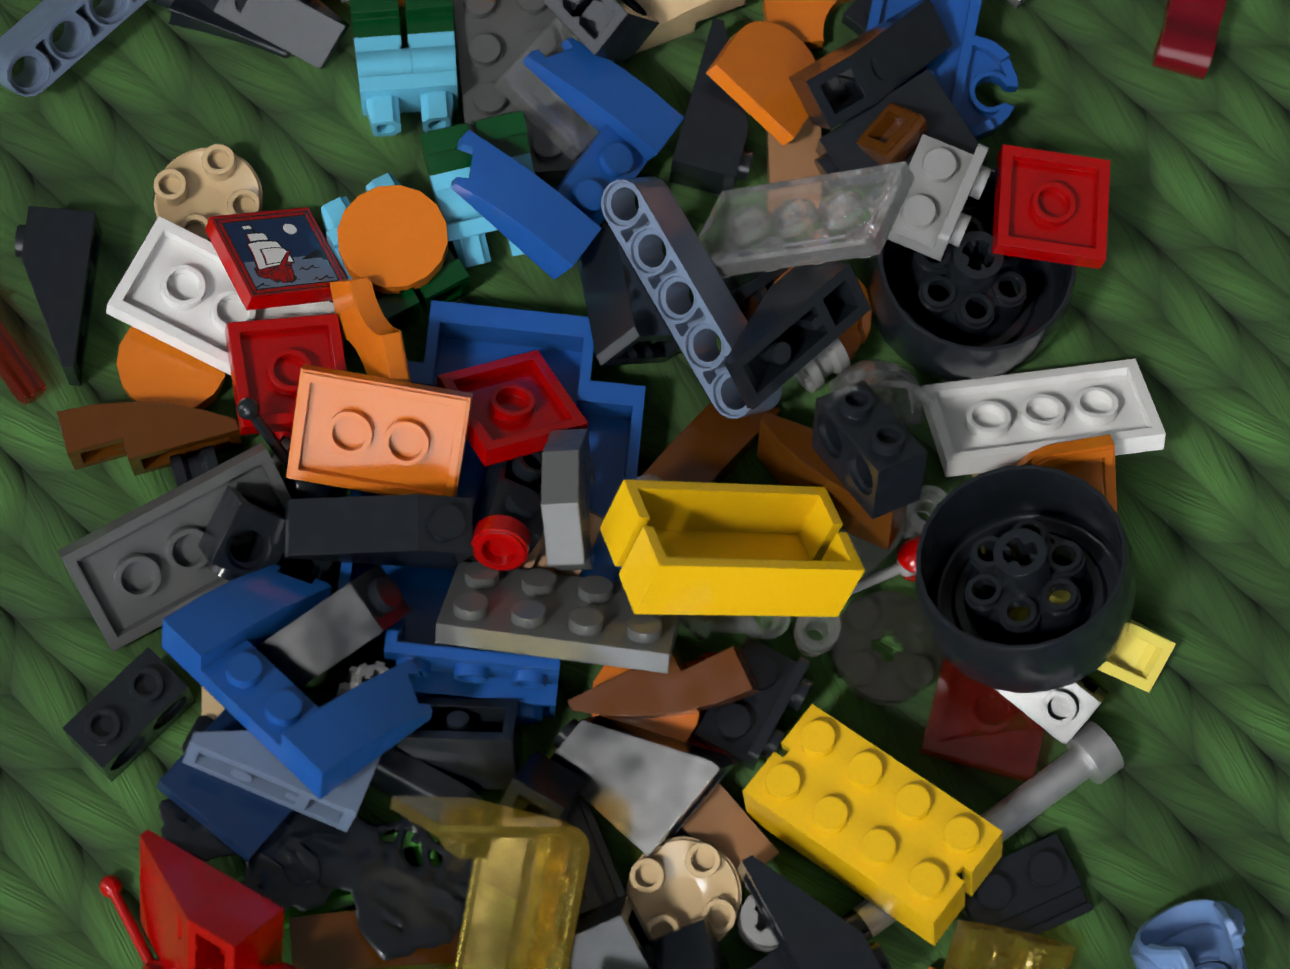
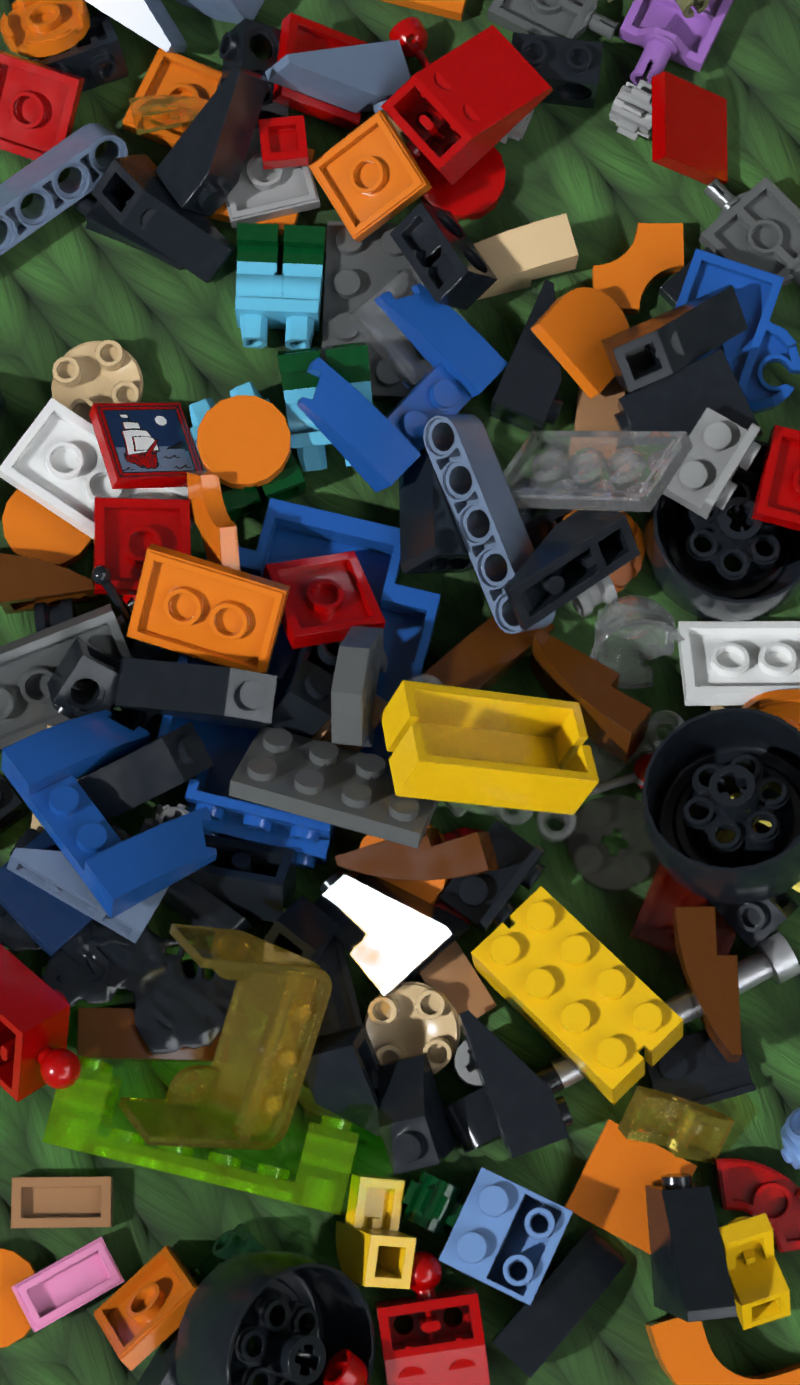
camera: 15 degrees right, 5 degrees up
(501, 542) = (296, 716): red tile -> none
(868, 449) = (618, 676): black brick -> none
(893, 135) = (682, 404): reddish brown slope -> none
(1023, 783) = (709, 978): none -> reddish brown slope

